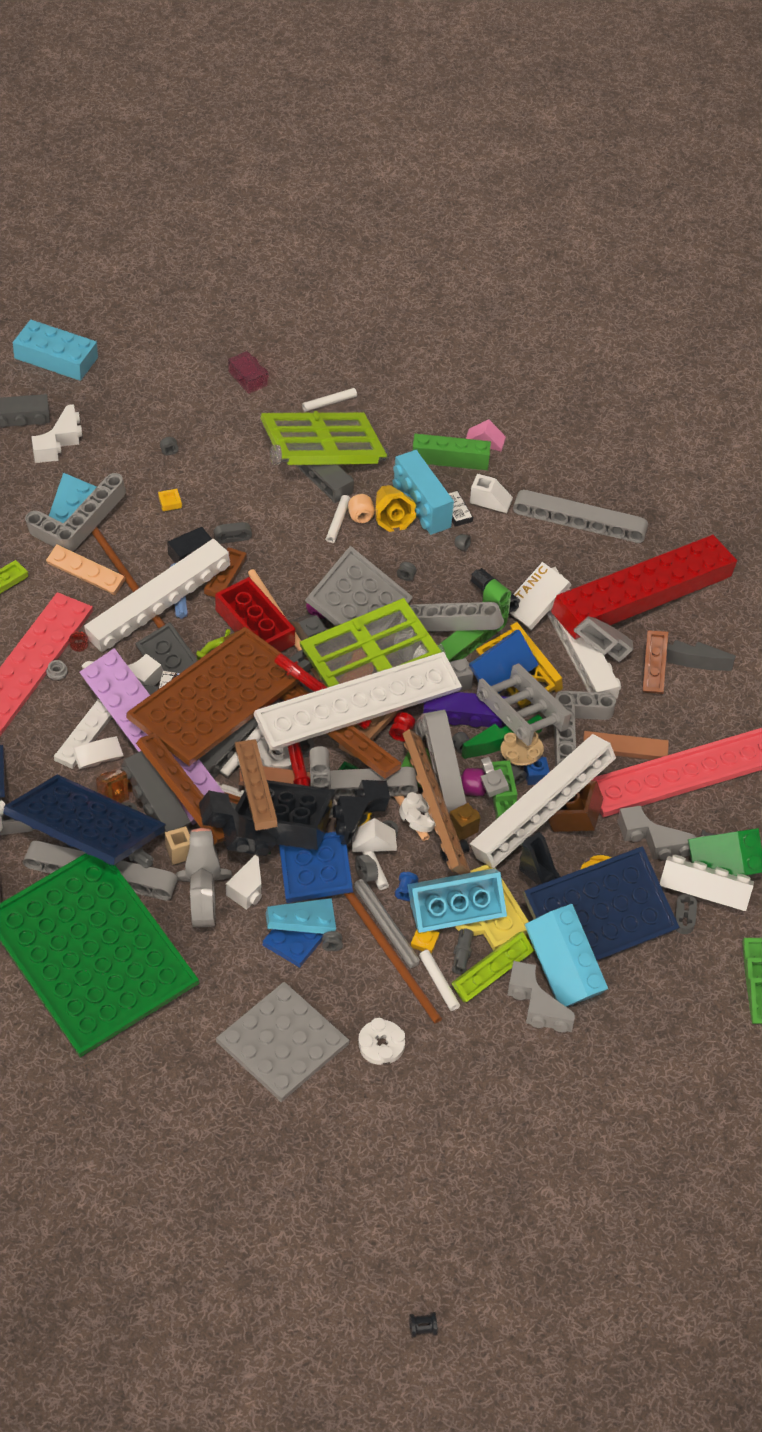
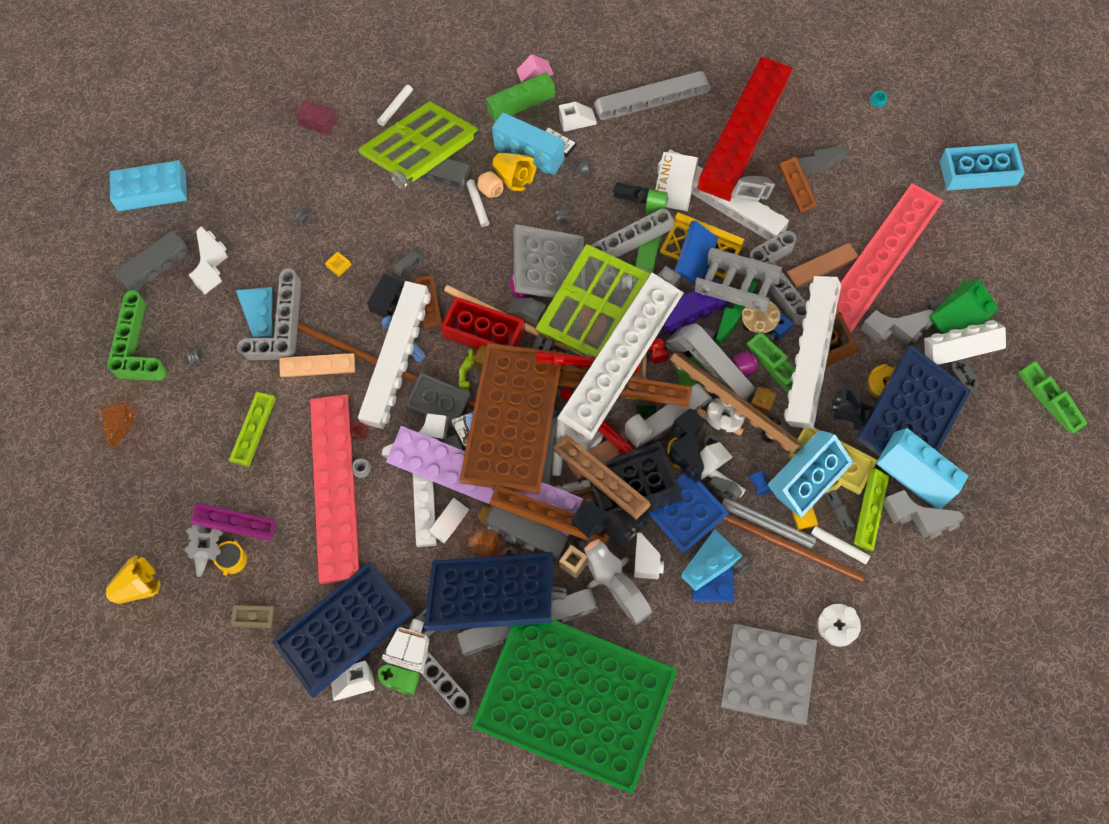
camera: 25 degrees left, 15 degrees up
(493, 780) = (764, 357): light grey plate -> none

